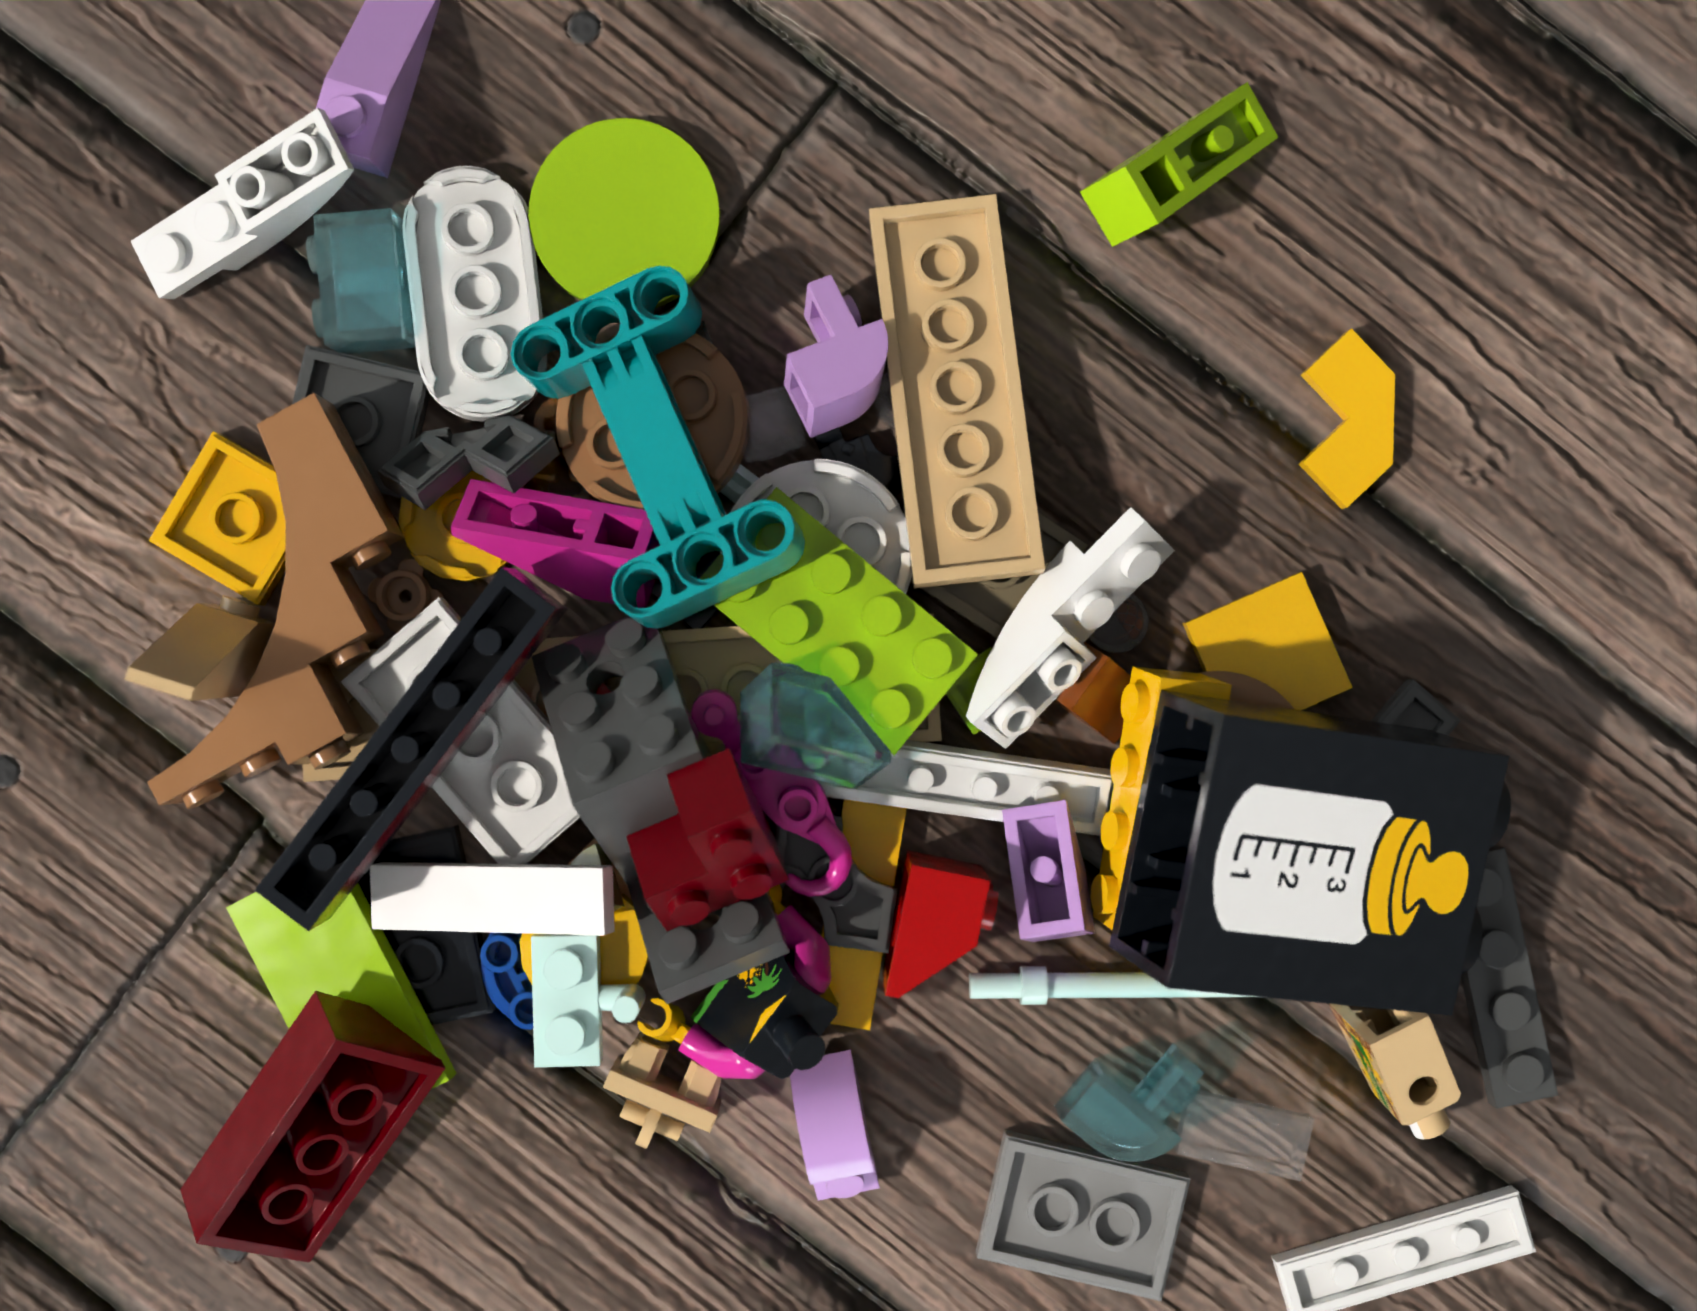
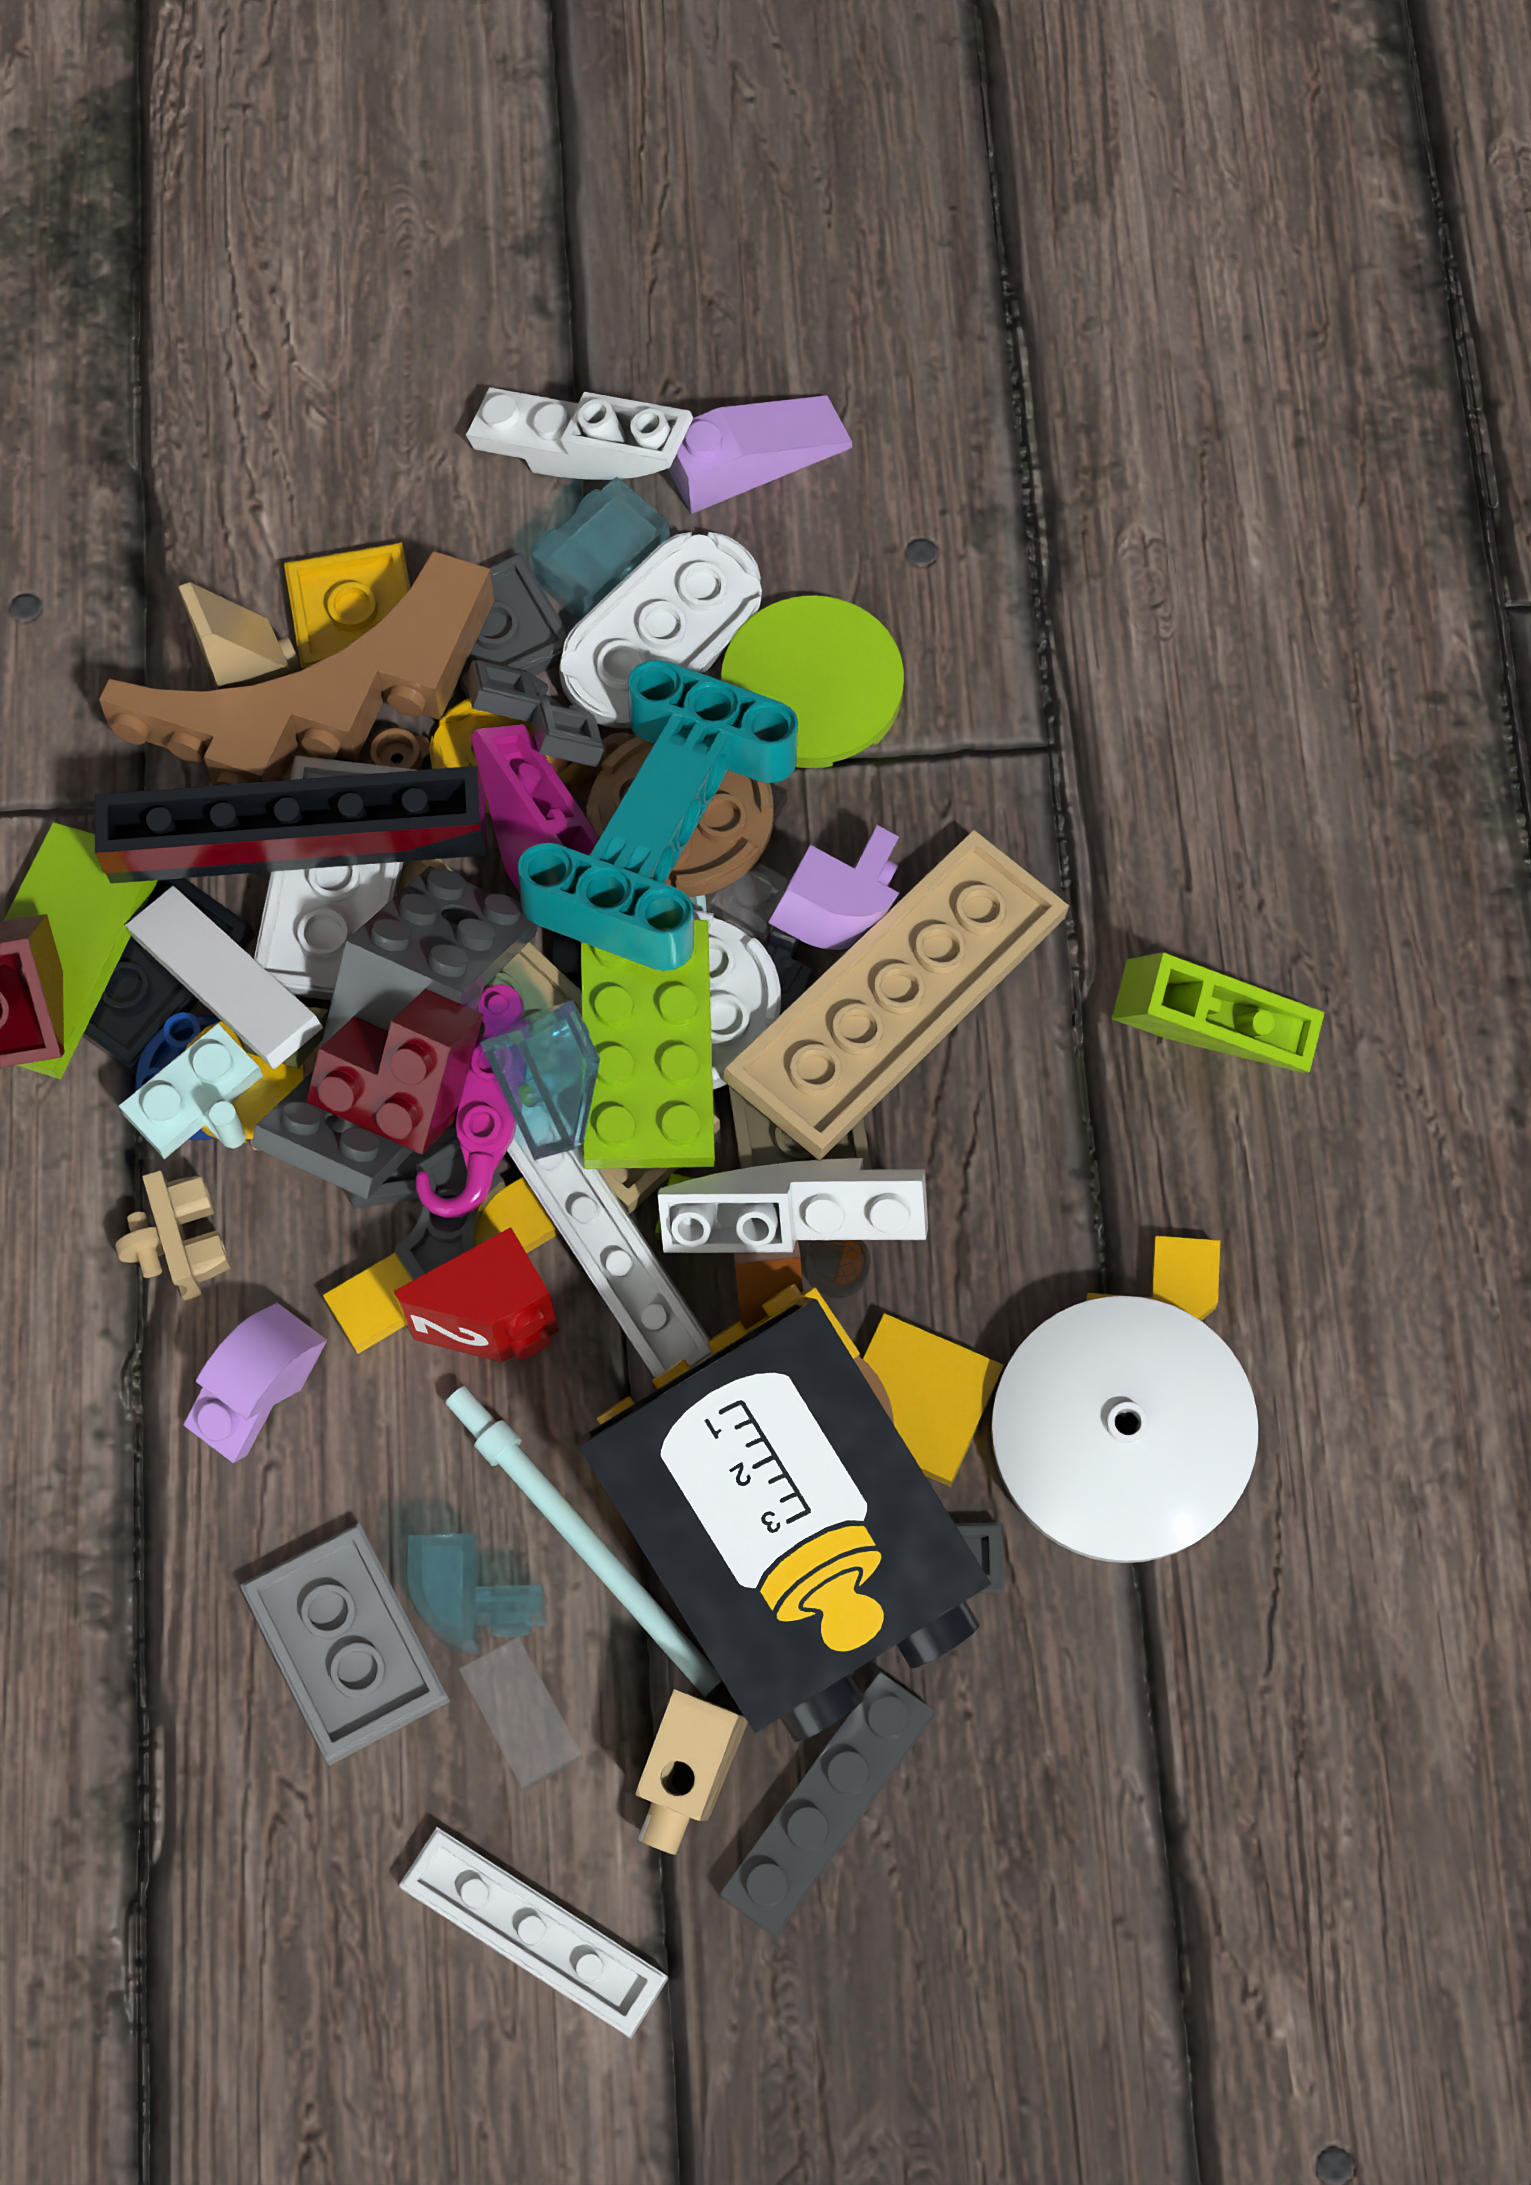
camera: 60 degrees right, 20 degrees down
(763, 1015) = (311, 1240): torso -> none
(1047, 872) = (592, 1364): lavender slope -> none
(1376, 517) = (1111, 1490): none -> white dish

